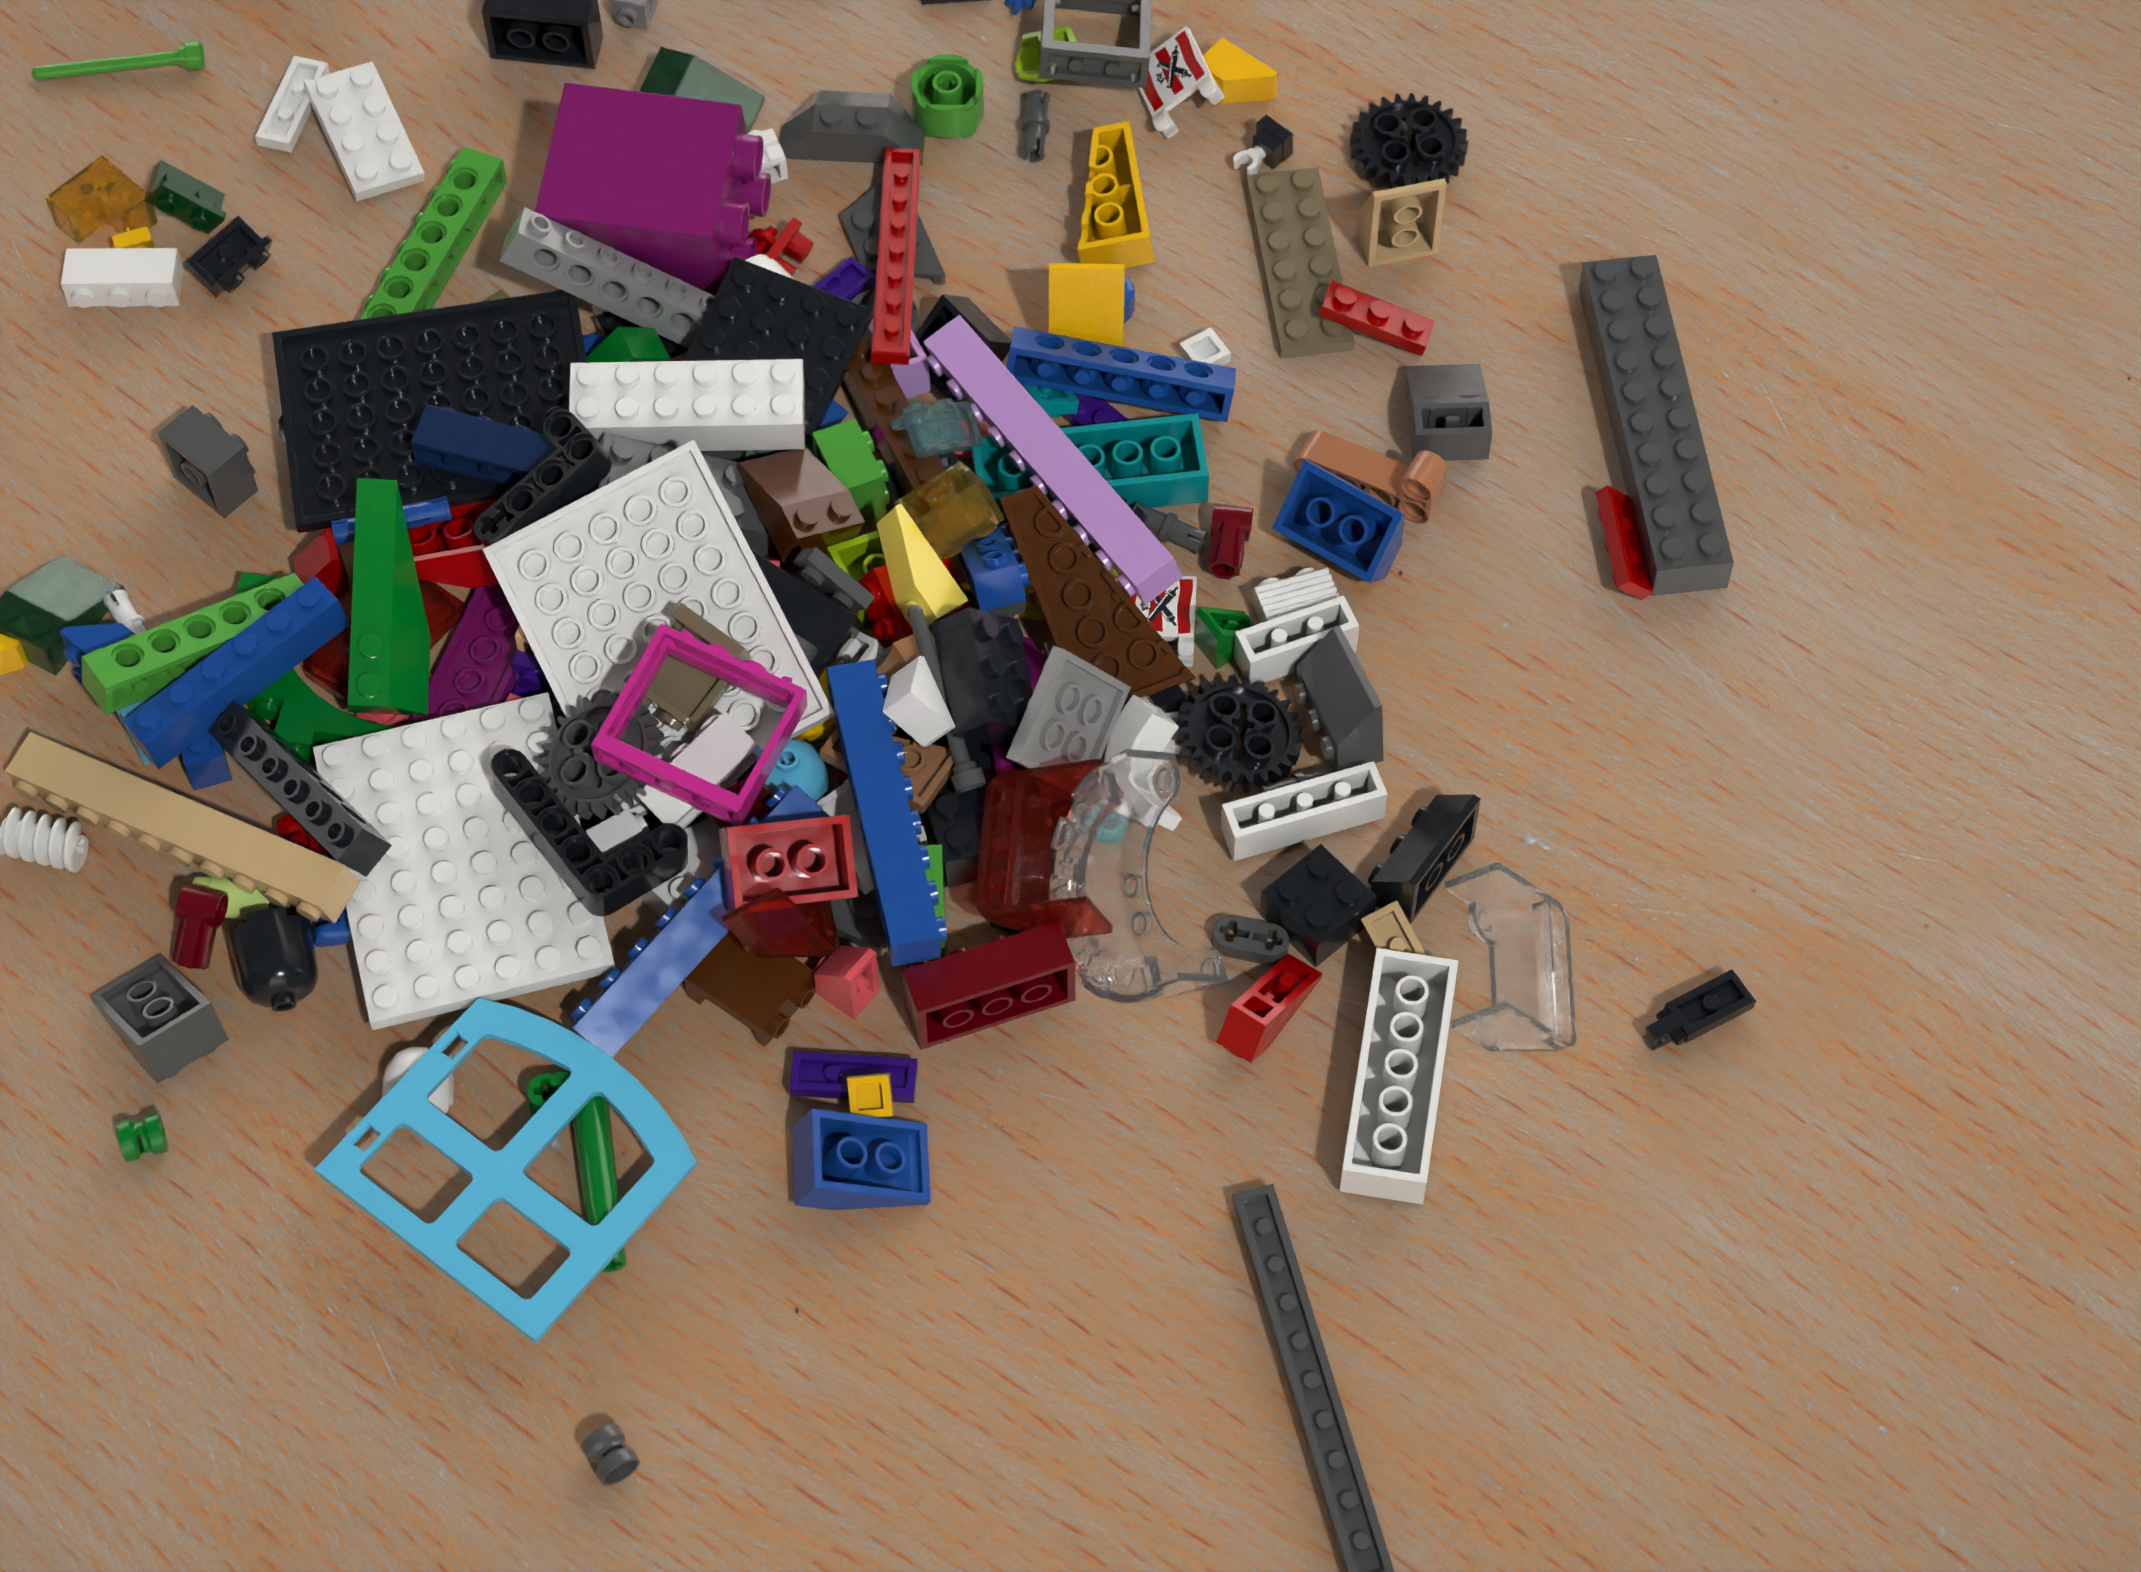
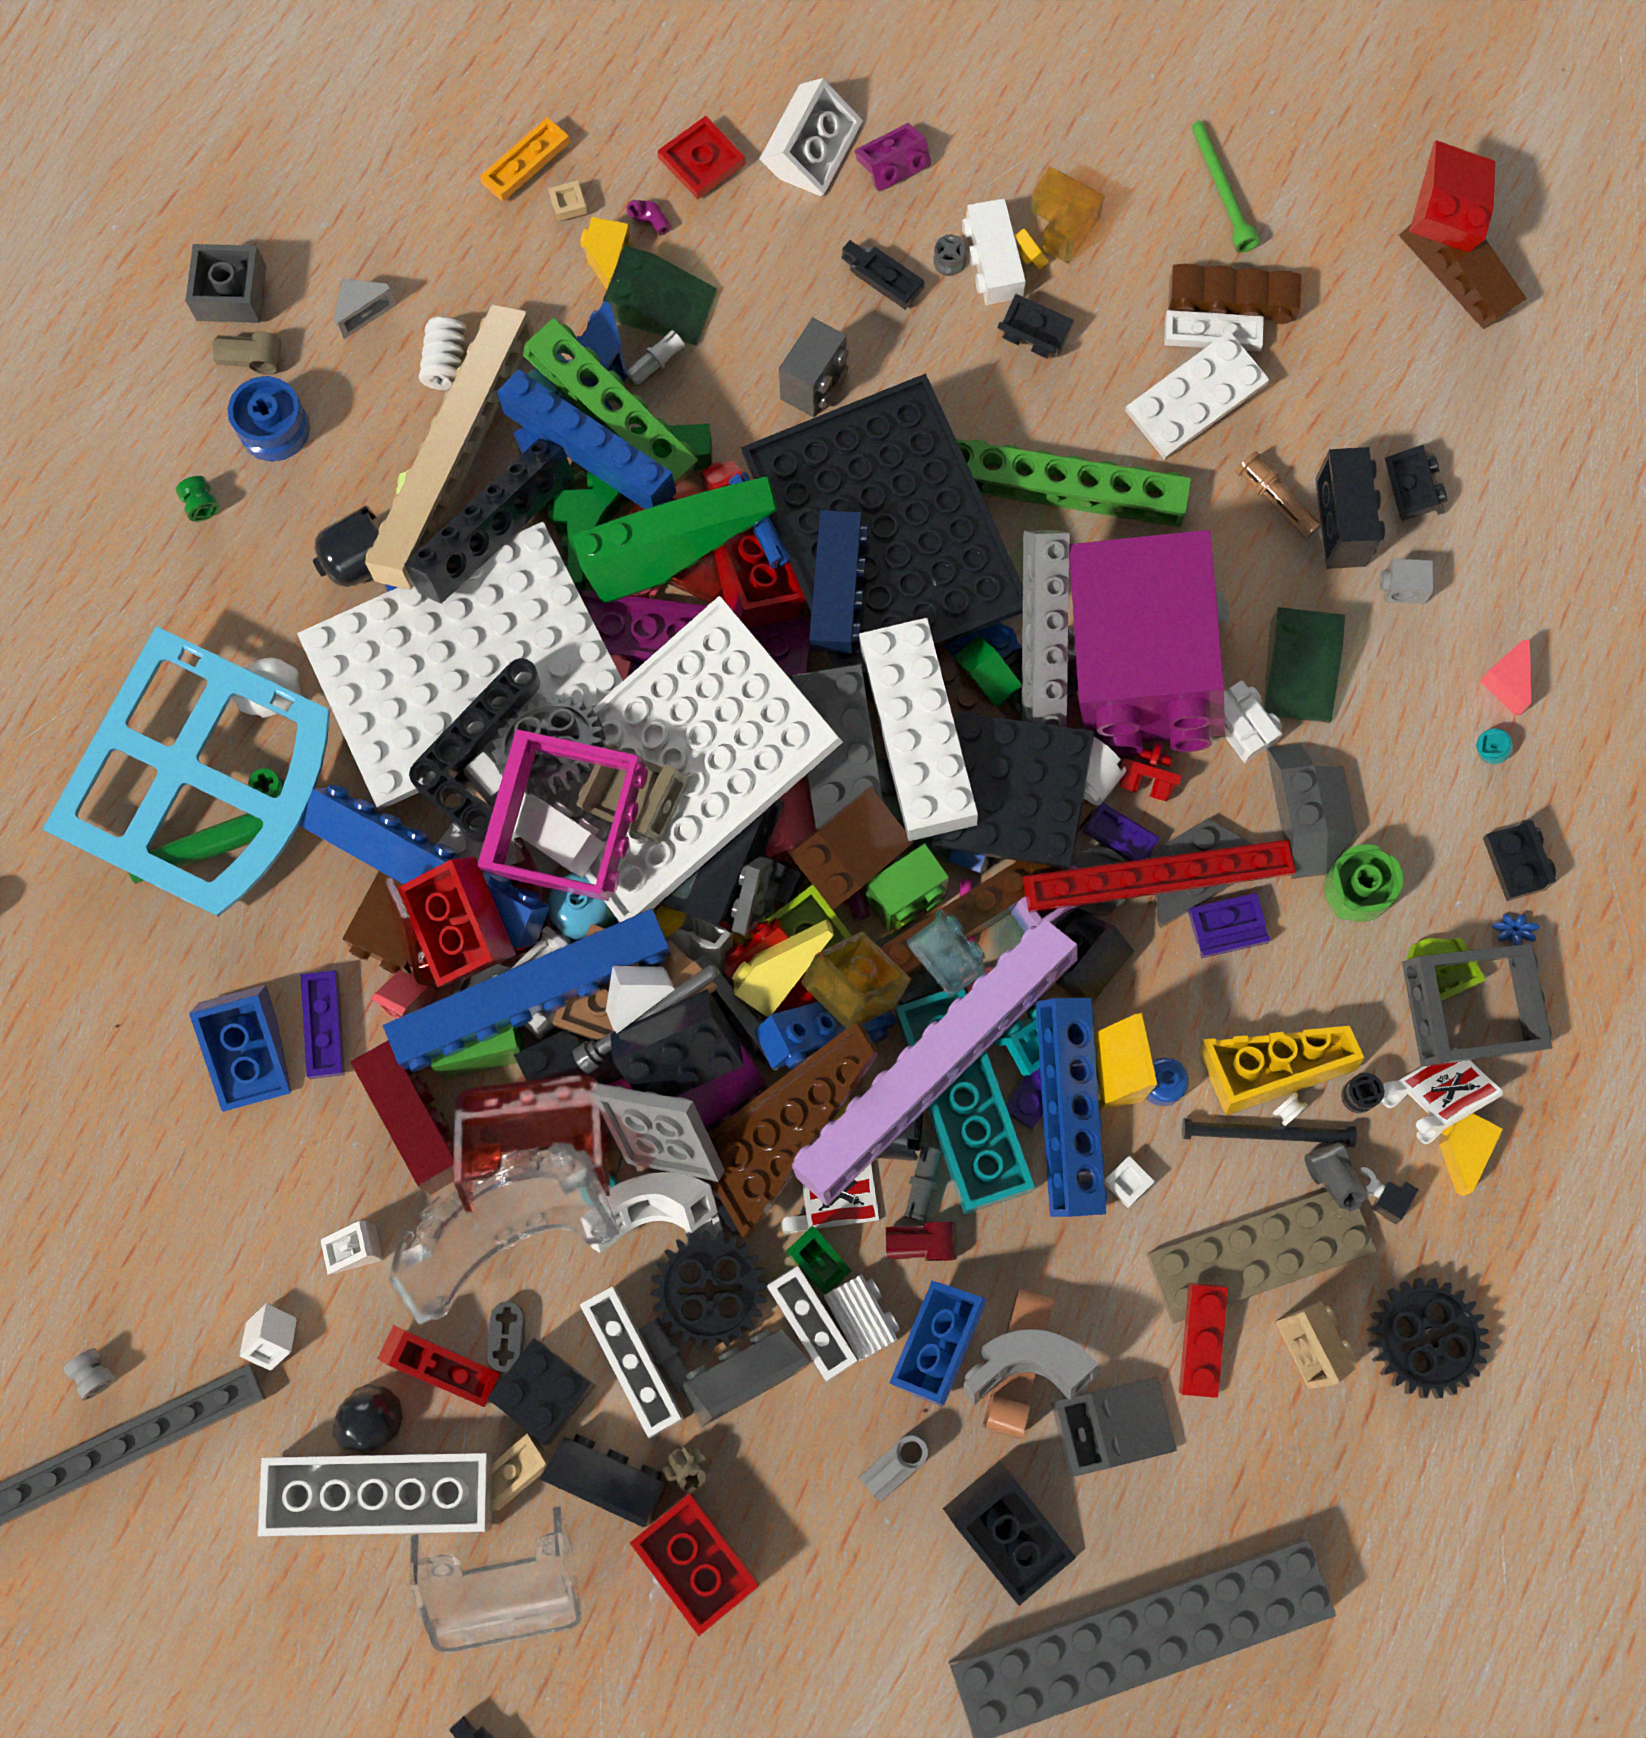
camera: 80 degrees right, 15 degrees up
(64, 1038) = (268, 418): none -> blue wheel
(107, 388) = (883, 273): none -> black hinge
(111, 312) = (951, 247): none -> dark grey wheel
(160, 1018) = (300, 481): dark grey slope -> none
(185, 198) = (1082, 273): dark green bracket -> none
(200, 915) = (376, 484): dark red piece -> none
(255, 75) = (1236, 292): none -> reddish brown brick
(488, 92) = (1268, 484): none -> medium nougat pin
(555, 483) = (811, 648): black beam -> none
(870, 1095) = (293, 1041): yellow plate -> none
(959, 219) = (1229, 925): none -> dark purple plate
(1035, 125) = (1357, 972): dark grey pin -> none
(1121, 1073) = (351, 1247): none -> white slope
(1159, 144) = (1356, 1096): none -> black wheel
(1161, 206) = (1290, 1108): none -> white bush
(1162, 293) = (1285, 1133): none -> black bar
(1204, 1174) = (268, 1337): none -> white panel
(1213, 1366) = (88, 1374): none -> light grey wheel
(1228, 181) = (1334, 1170): none -> dark grey piece
(1313, 1083) = (367, 1419): none -> black hair
(1368, 431) = (1031, 1352): none -> light grey arch
(1424, 781) = (686, 1470): none -> dark tan gear
(1454, 598) = (892, 1469): none -> light grey piece
(1524, 783) = (695, 1564): none -> red brick
(1532, 513) = (1009, 1533): none -> black slope
(1623, 543) = (993, 1626): red plate -> none

